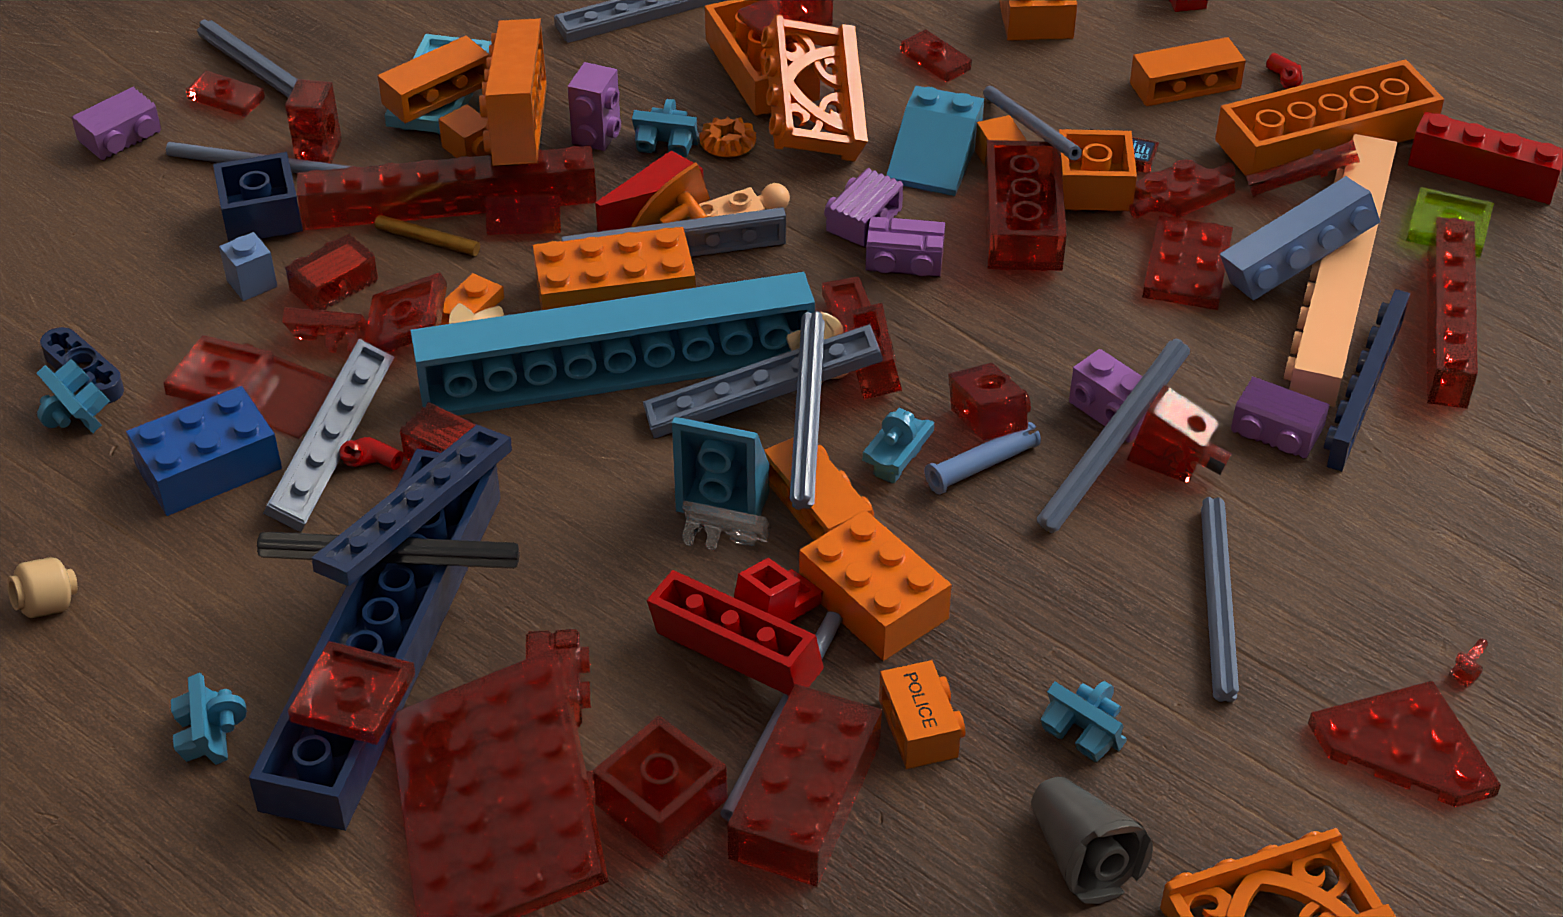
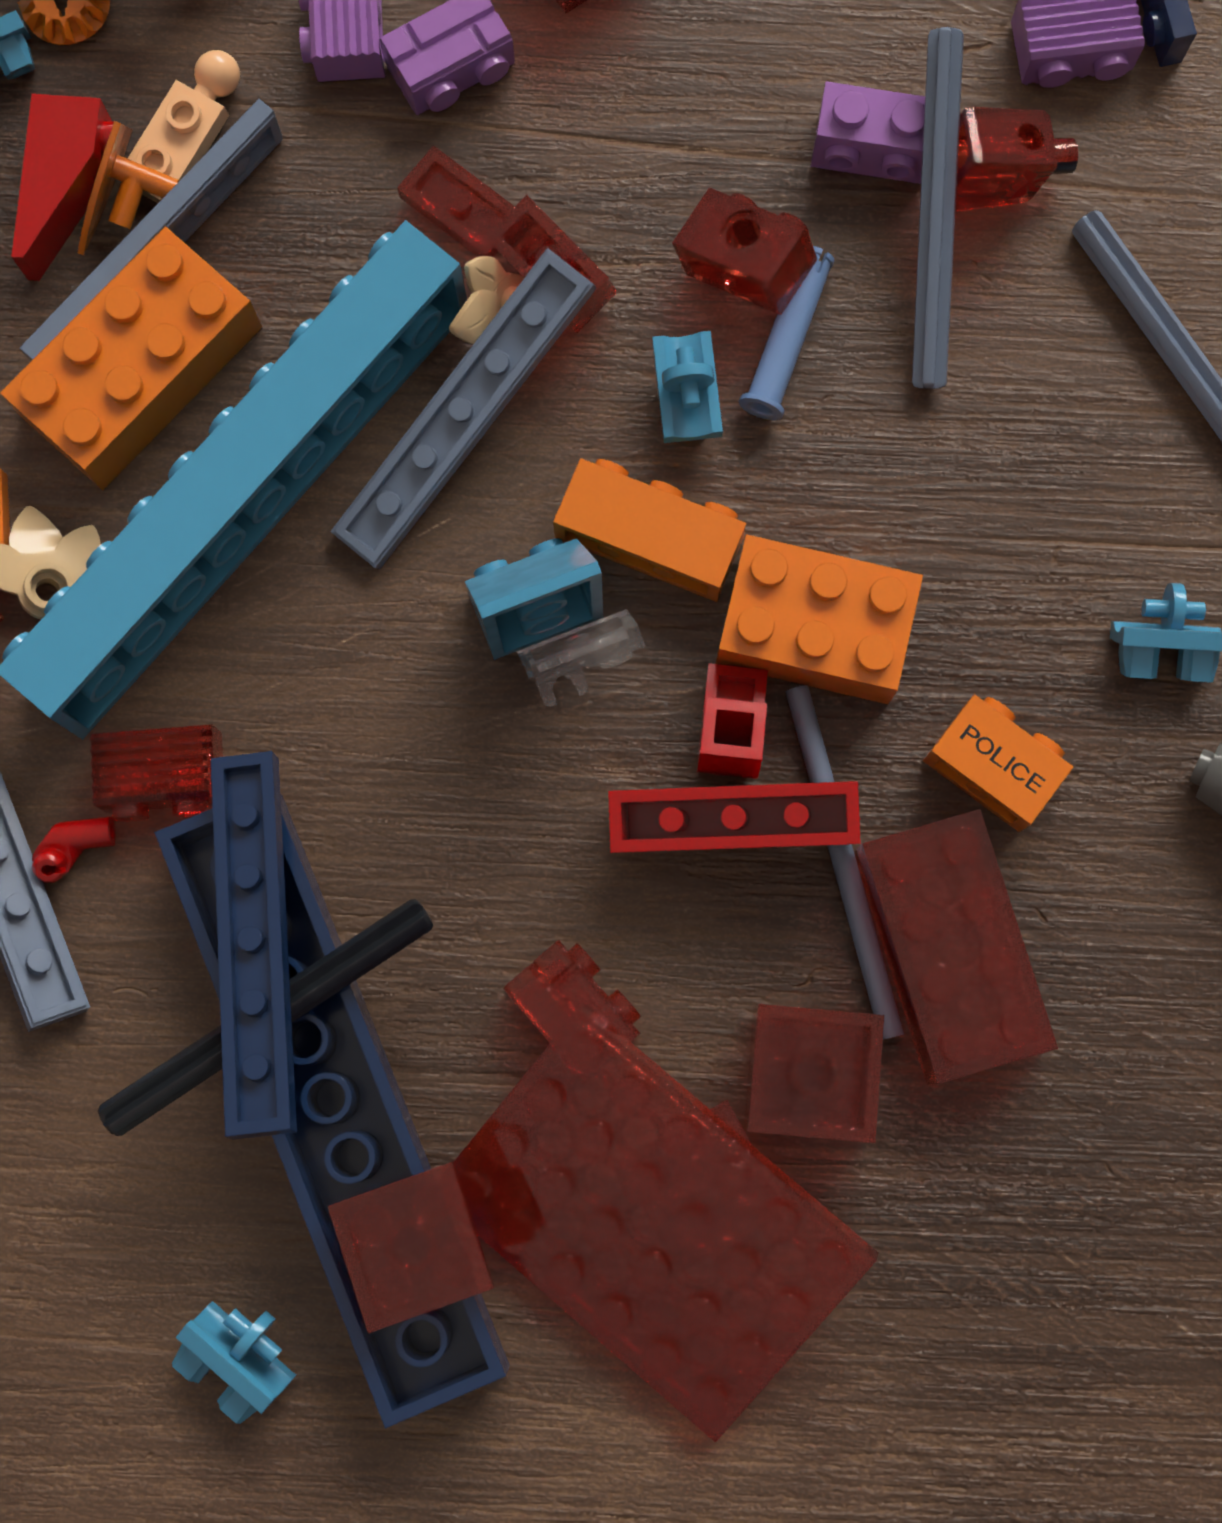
camera: 35 degrees left, 35 degrees up
(807, 411) = (570, 432): sand blue axle -> none

